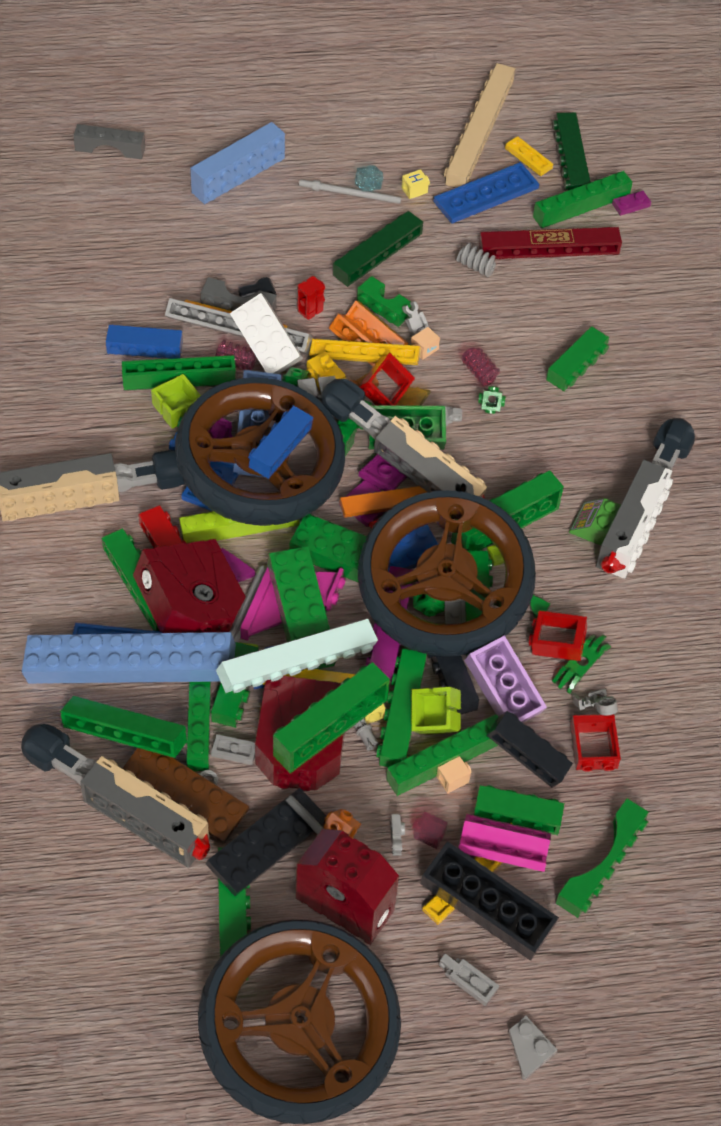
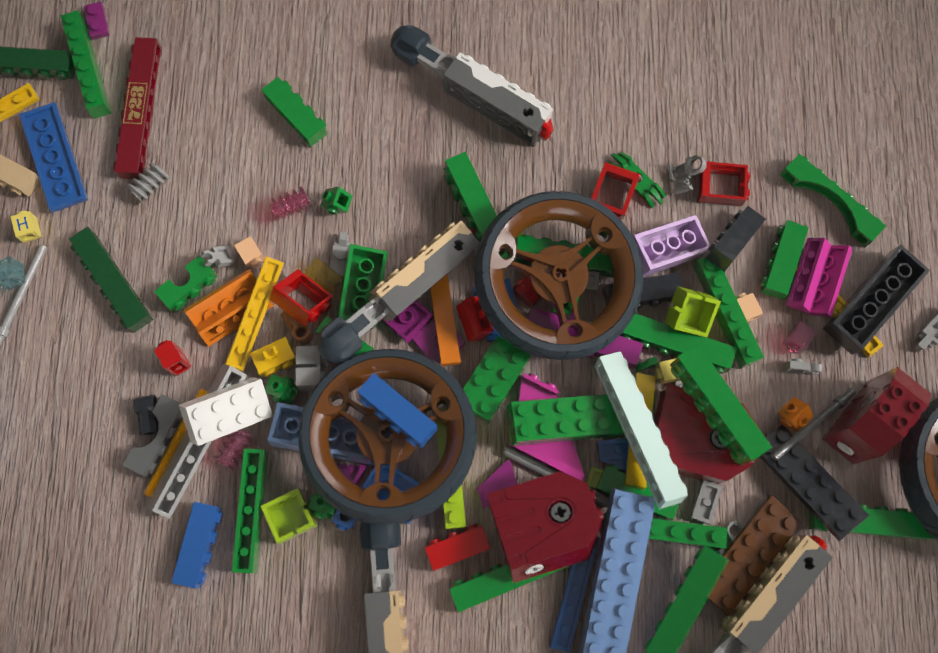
camera: 80 degrees left, 20 degrees up
(595, 520) = (489, 134): bright green slope -> none

